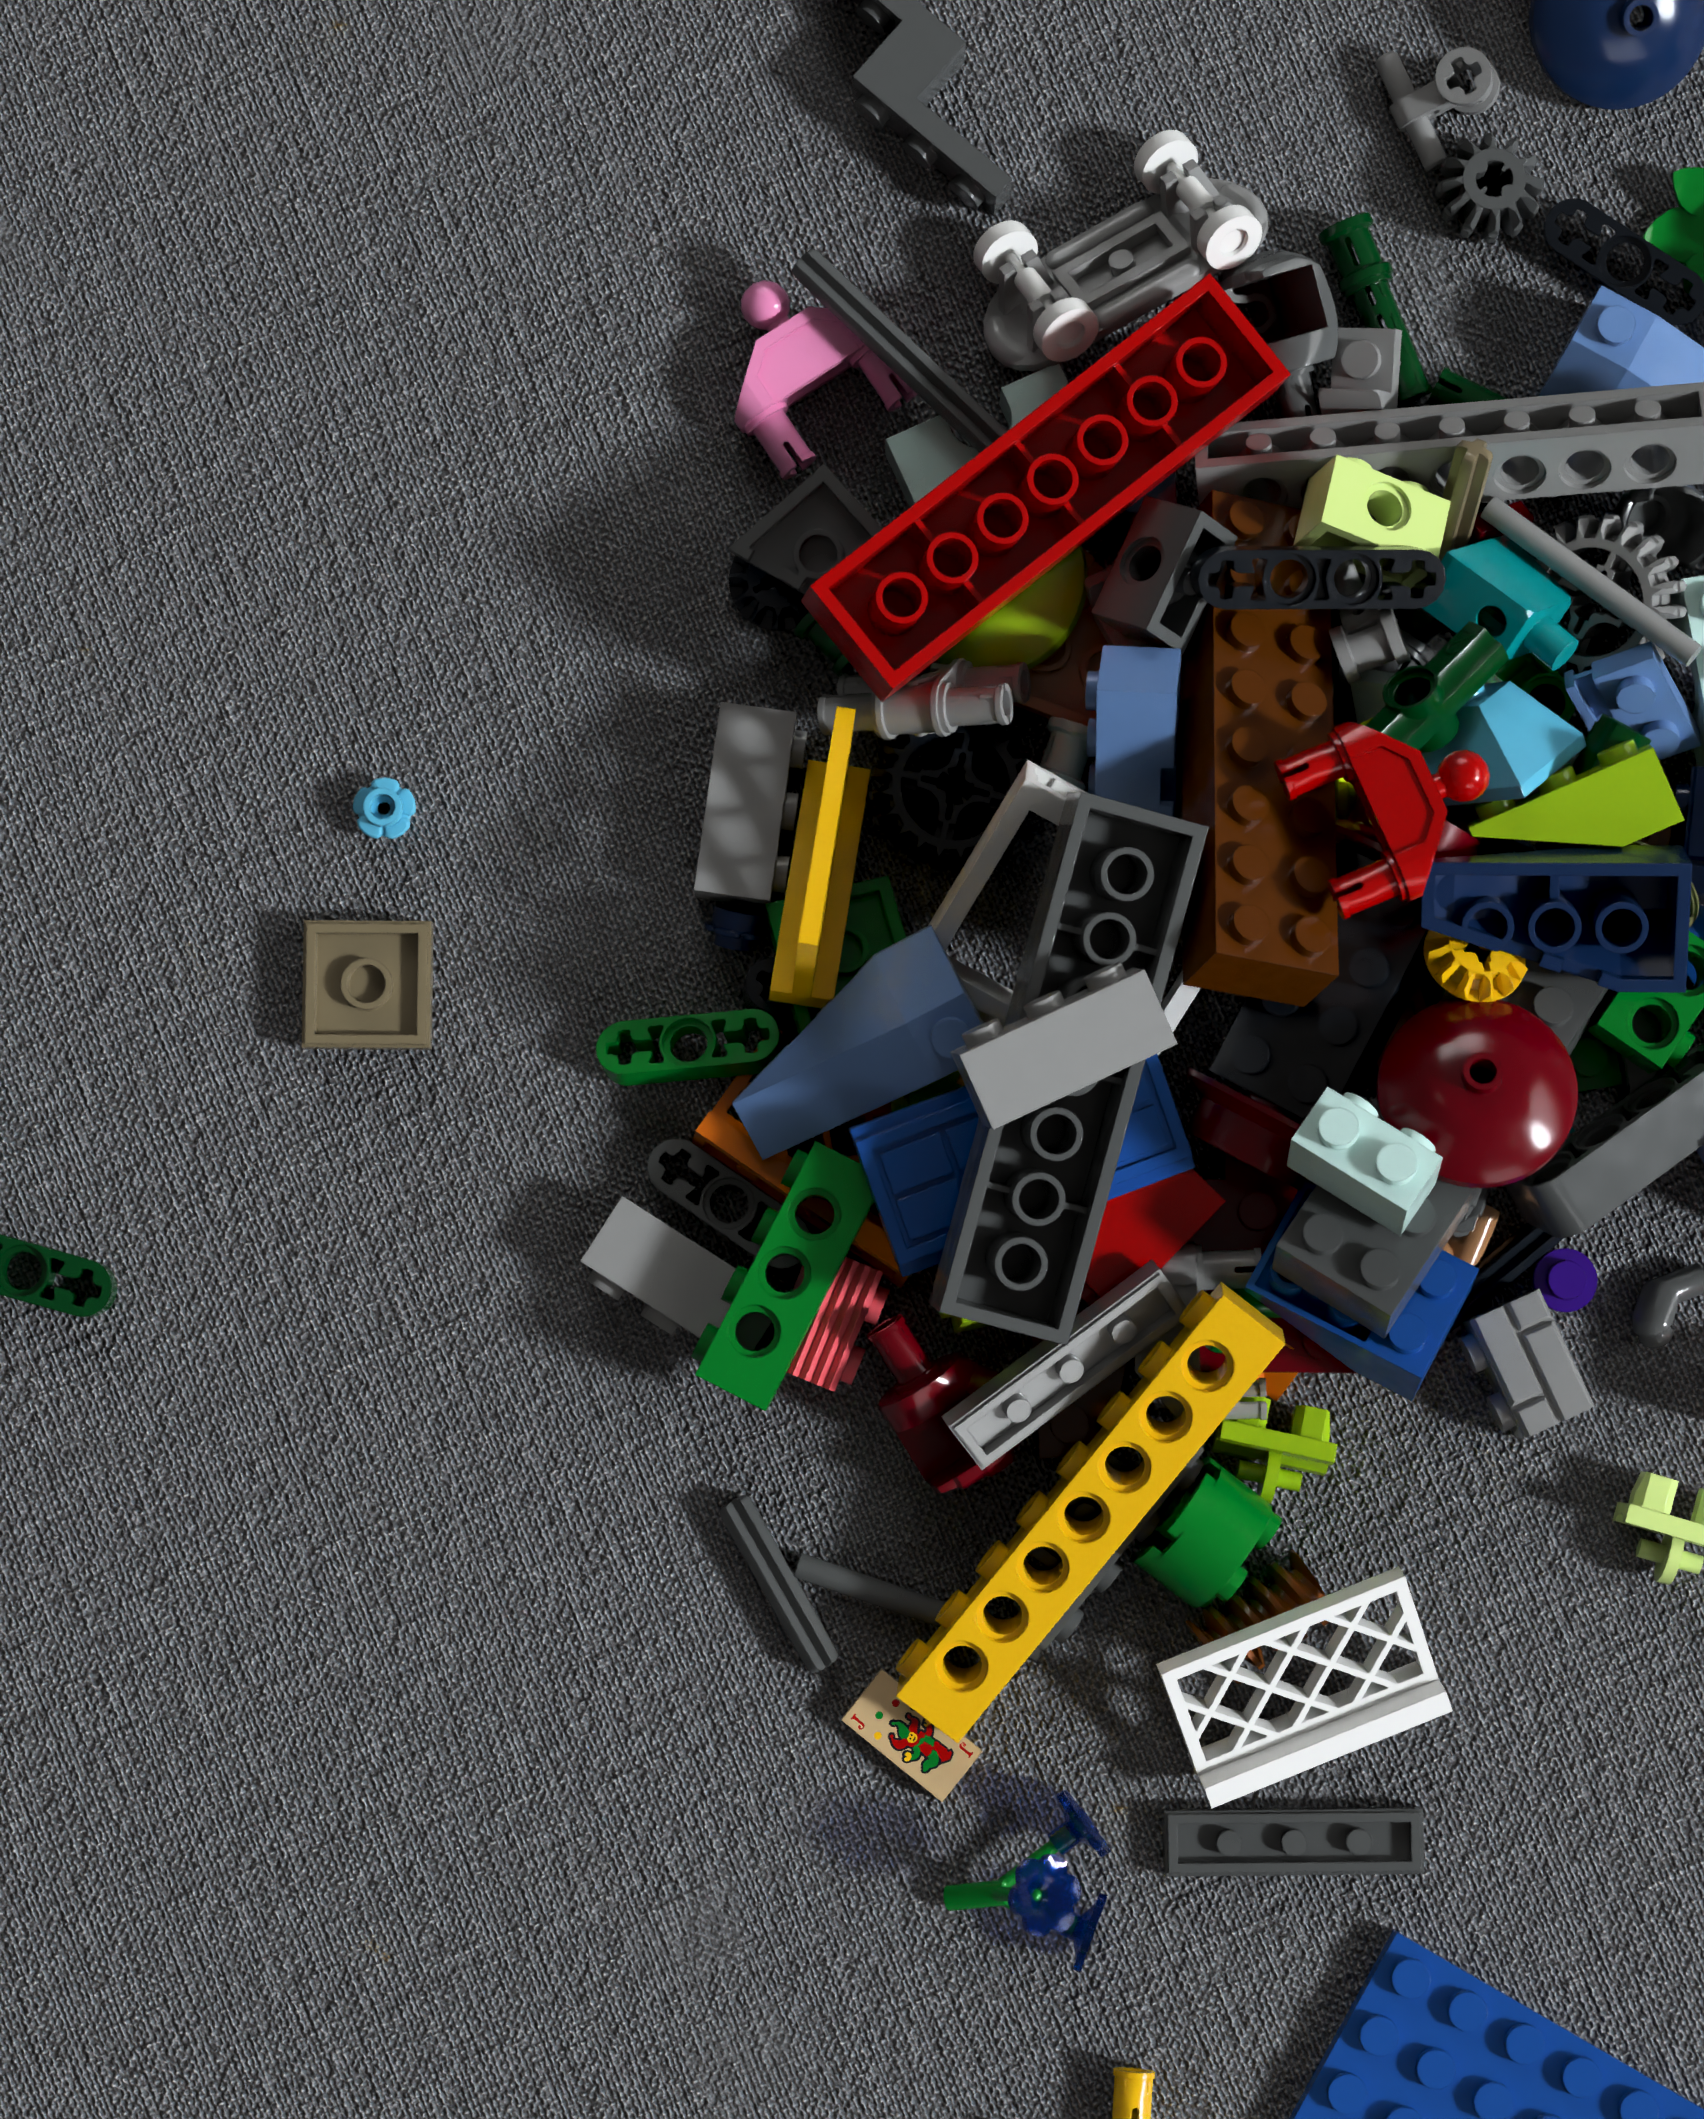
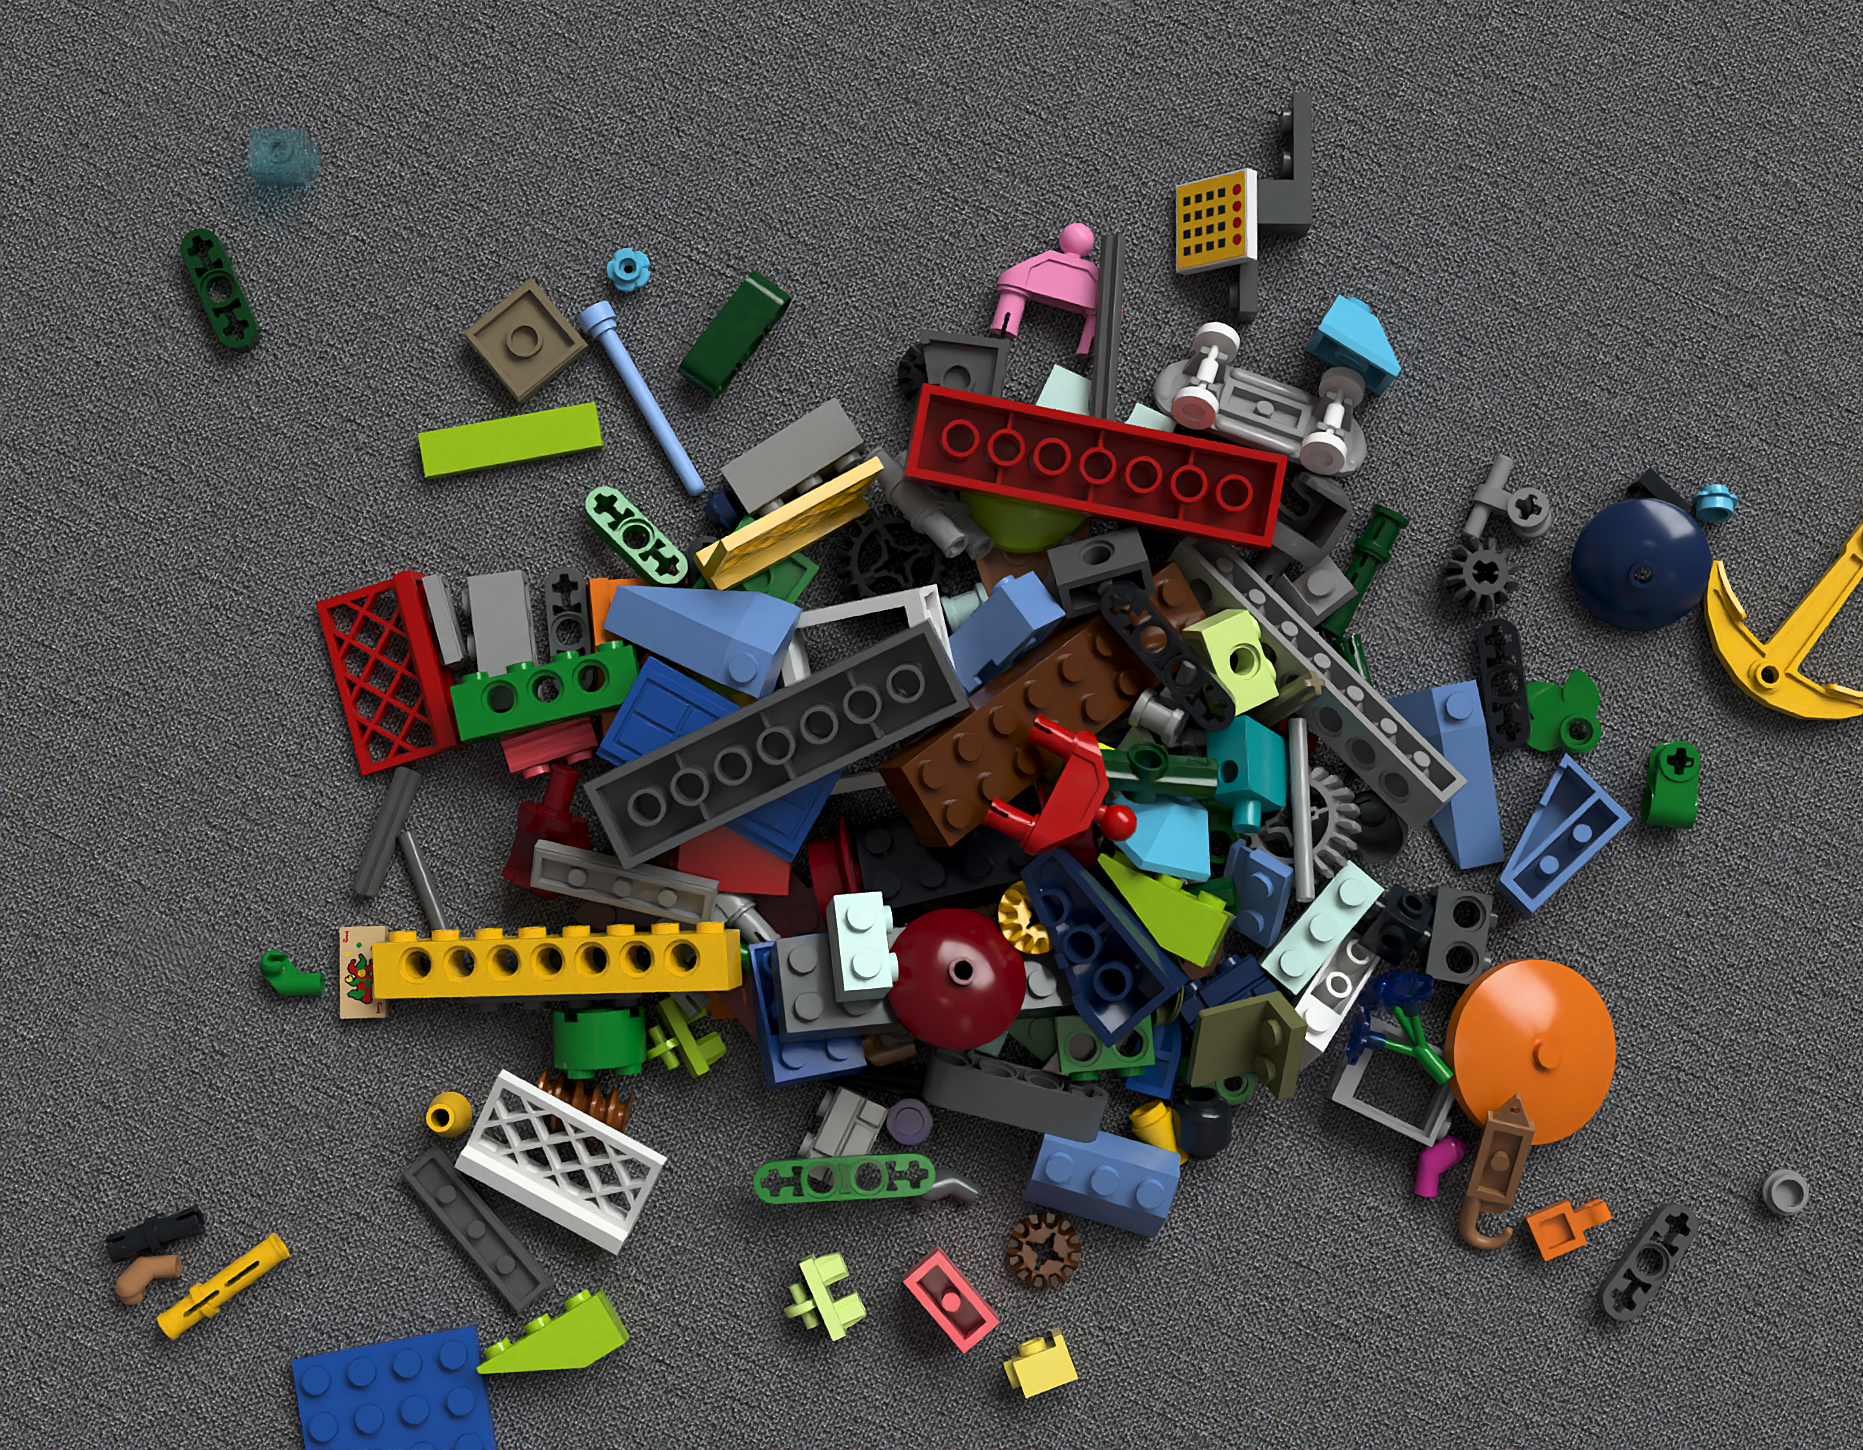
camera: 50 degrees right, 0 degrees up
(420, 889) = (600, 323): none -> light blue piece
(462, 1092) = (510, 440): none -> lime tile
(555, 754) = (734, 334): none -> dark green beam
(604, 1326) = (445, 621): none -> light grey tile
(634, 1382) = (423, 652): none -> red fence
(849, 1825) = (286, 978): none -> green arm
(876, 140) = (1216, 222): none -> tile
(1042, 1886) = (328, 1109): clear blue plant -> none
(1062, 1044) = (778, 726): light grey brick -> none
(1130, 102) = (1355, 341): none -> medium azure slope
(1134, 1756) = (459, 1114): none -> yellow cone
(1496, 1843) = (566, 1342): none -> lime slope
(1583, 1401) = (844, 1171): none -> green beam

